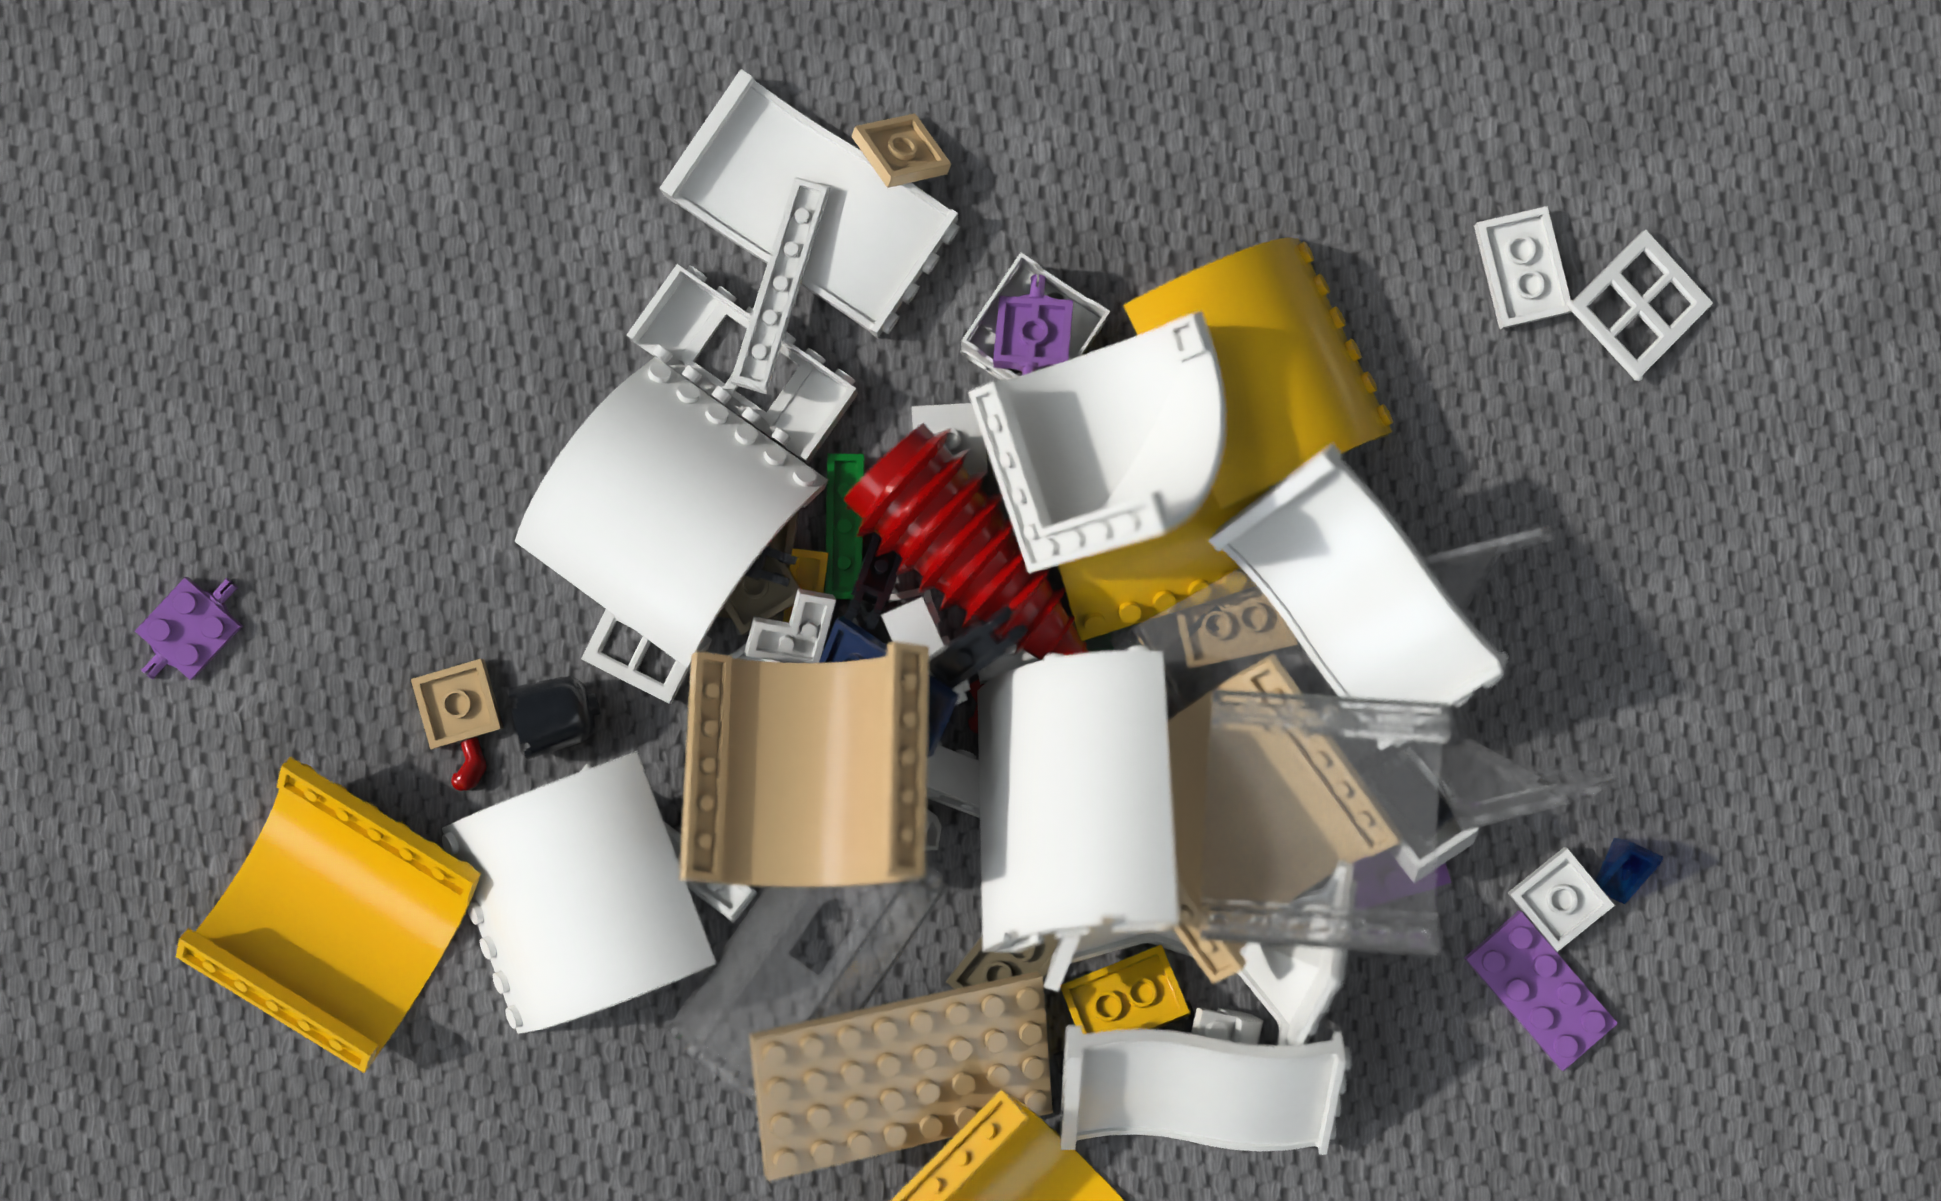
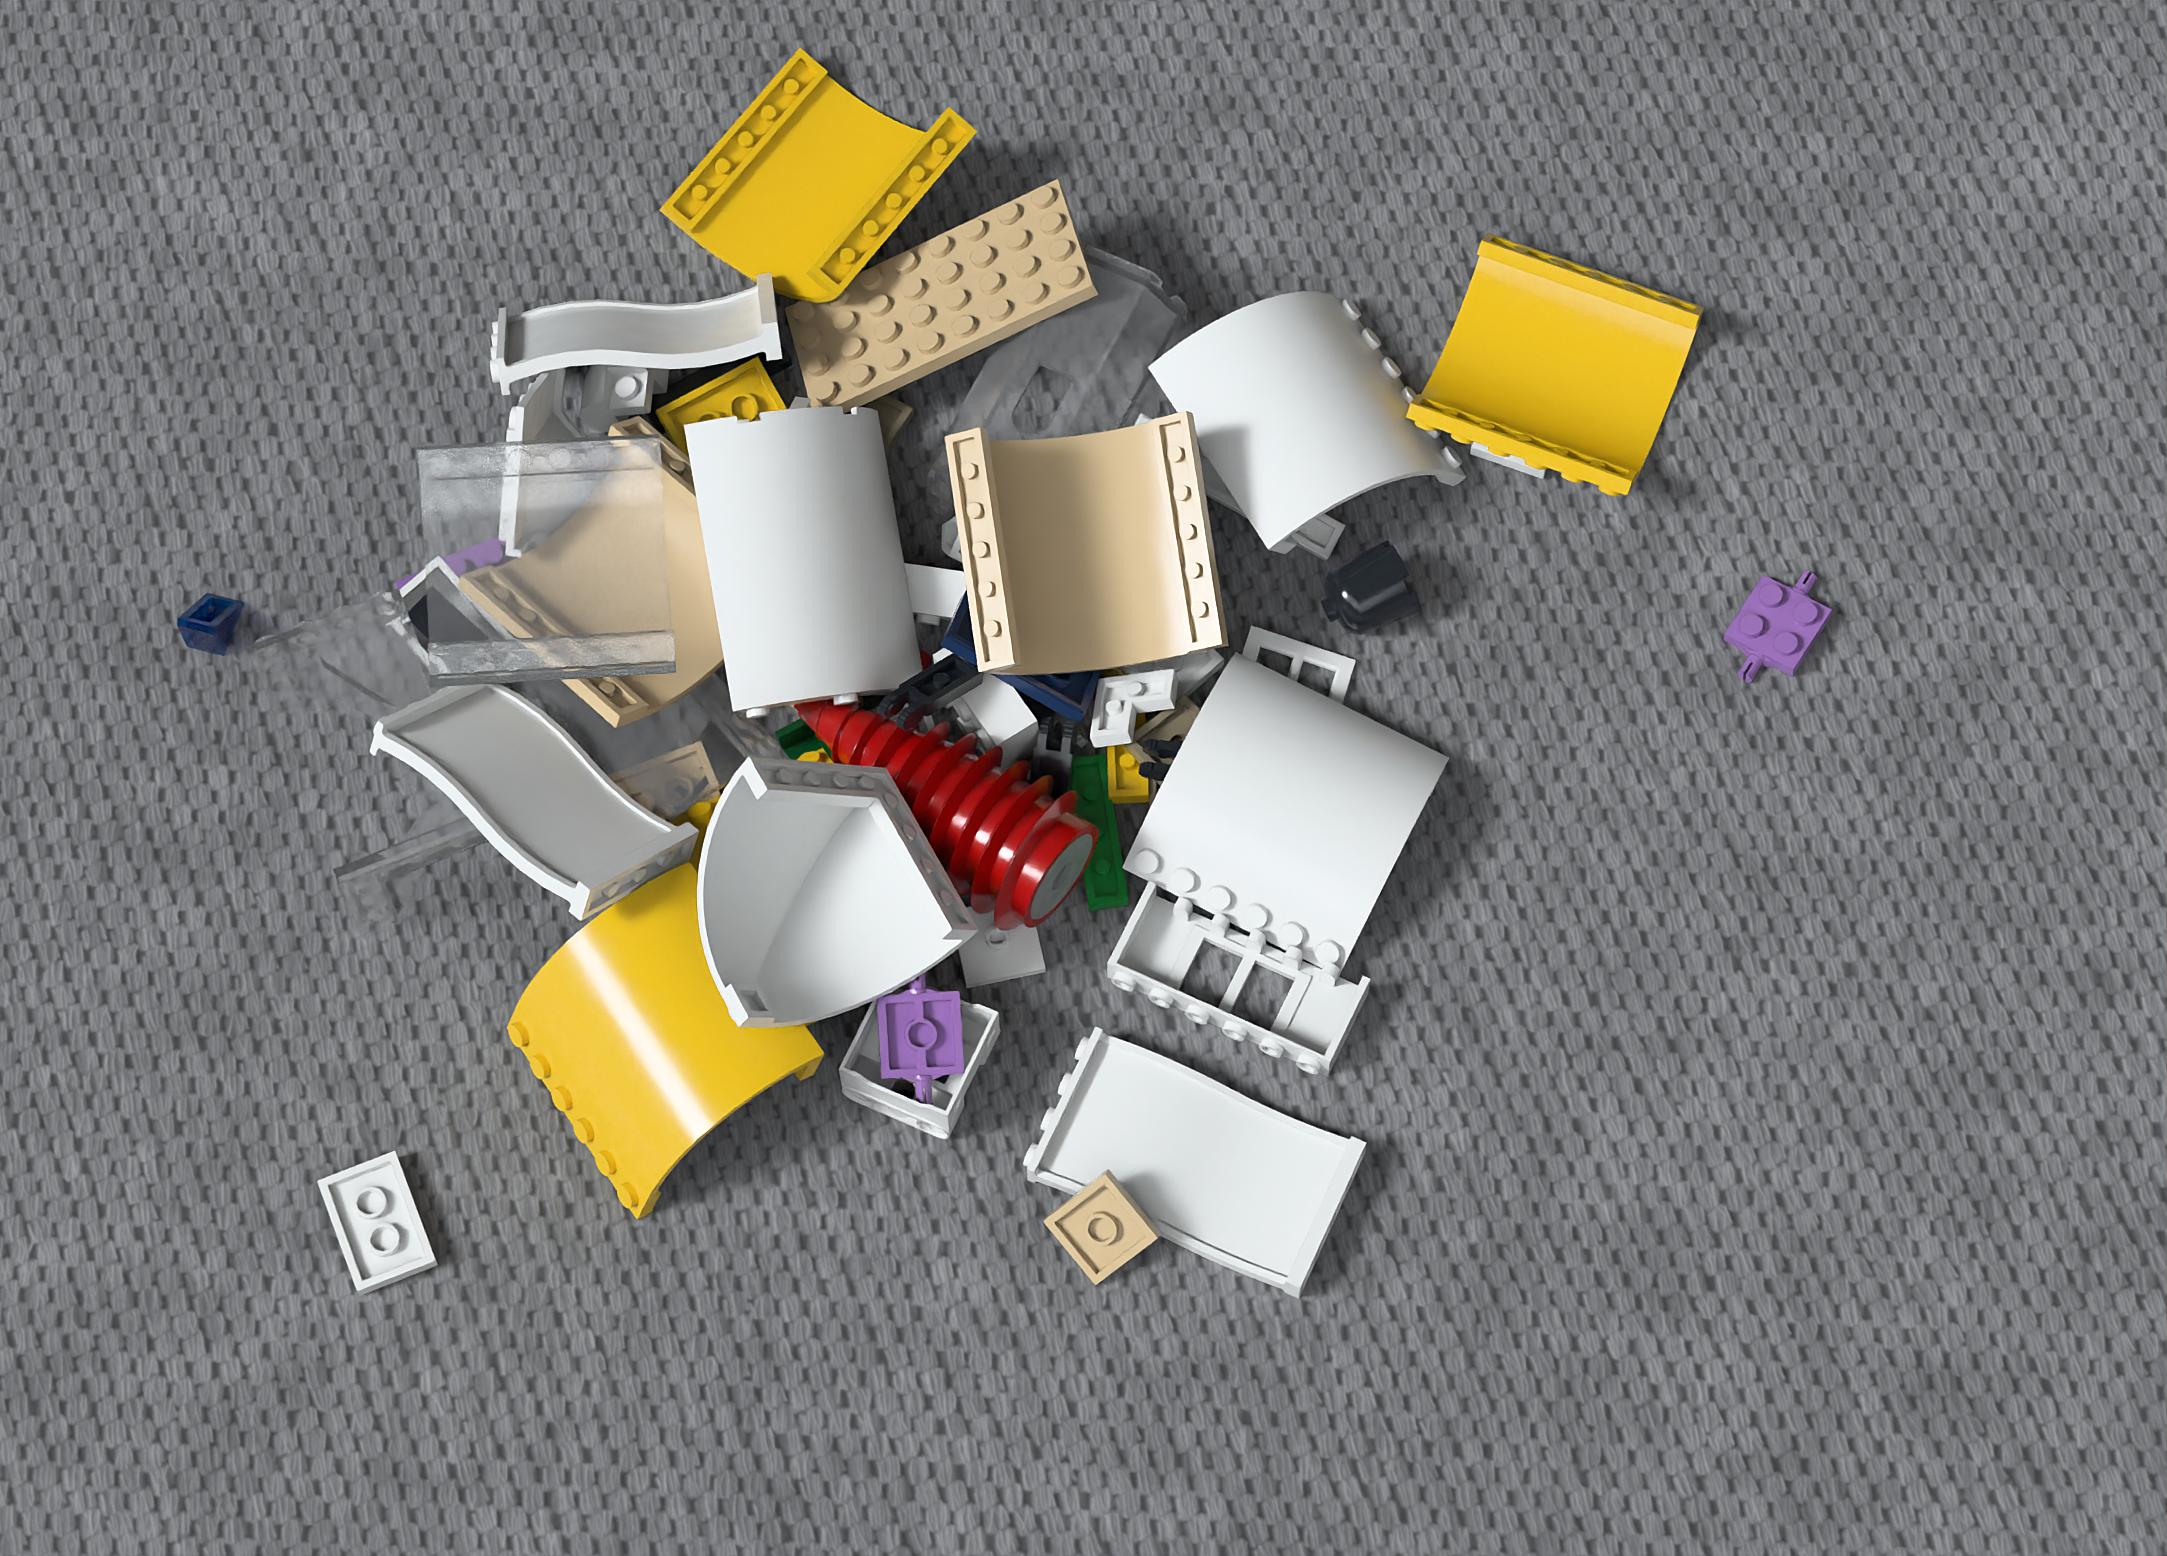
camera: 175 degrees right, 20 degrees down
(457, 703) = (1476, 594): tan plate -> none
(472, 768) = (1445, 537): red arm -> none
(780, 285) = (1210, 1057): white tile -> none
(1540, 990) = (290, 497): medium lavender plate -> none
(1561, 899) = (277, 583): white plate -> none
(1640, 304) = (241, 1202): white window -> none

